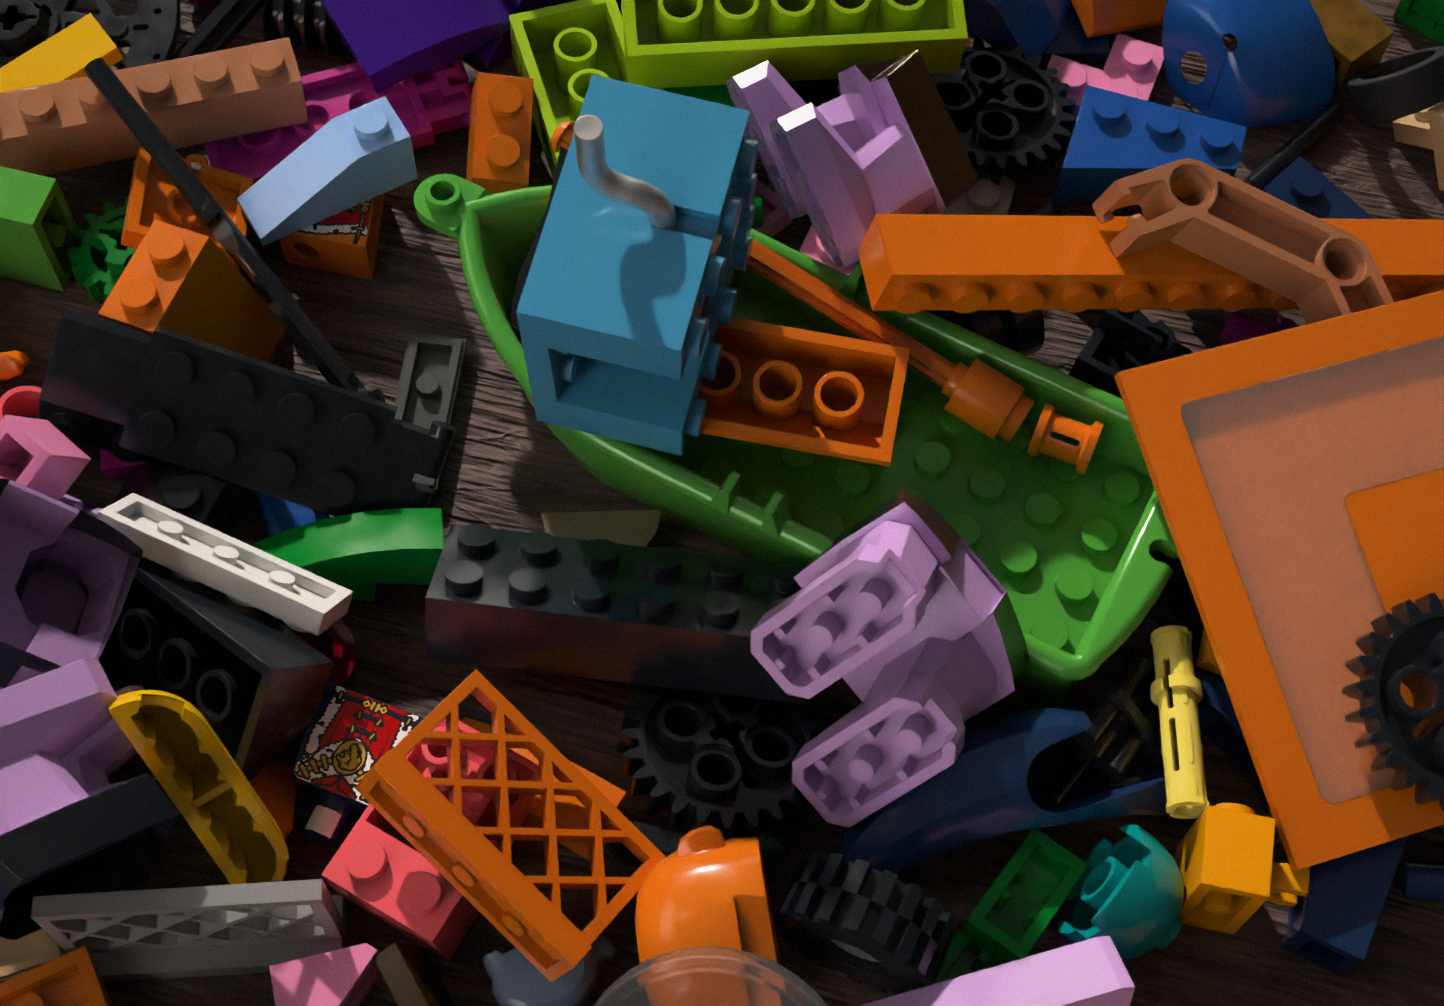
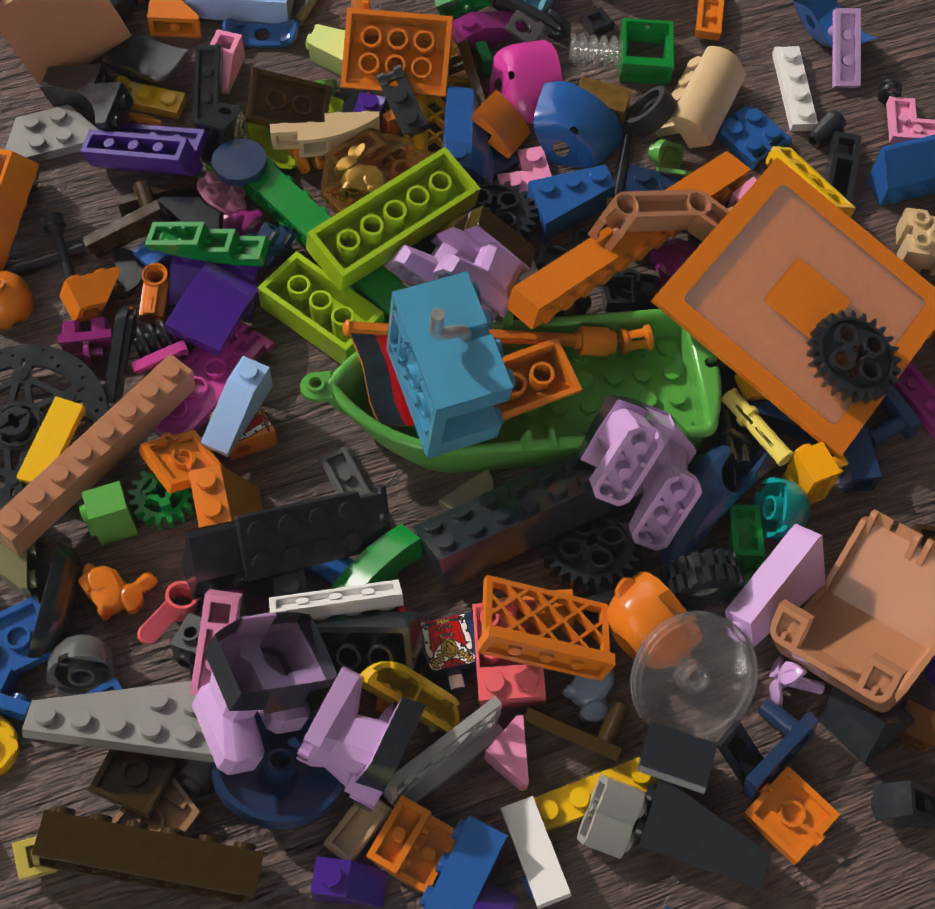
camera: 35 degrees left, 0 degrees up
(226, 232) = (208, 458): black bar -> none
(312, 50) = (151, 361): none -> dark pink tile
(500, 132) = (294, 347): orange brick -> none
(1377, 175) = (667, 157): none -> bright green bracket

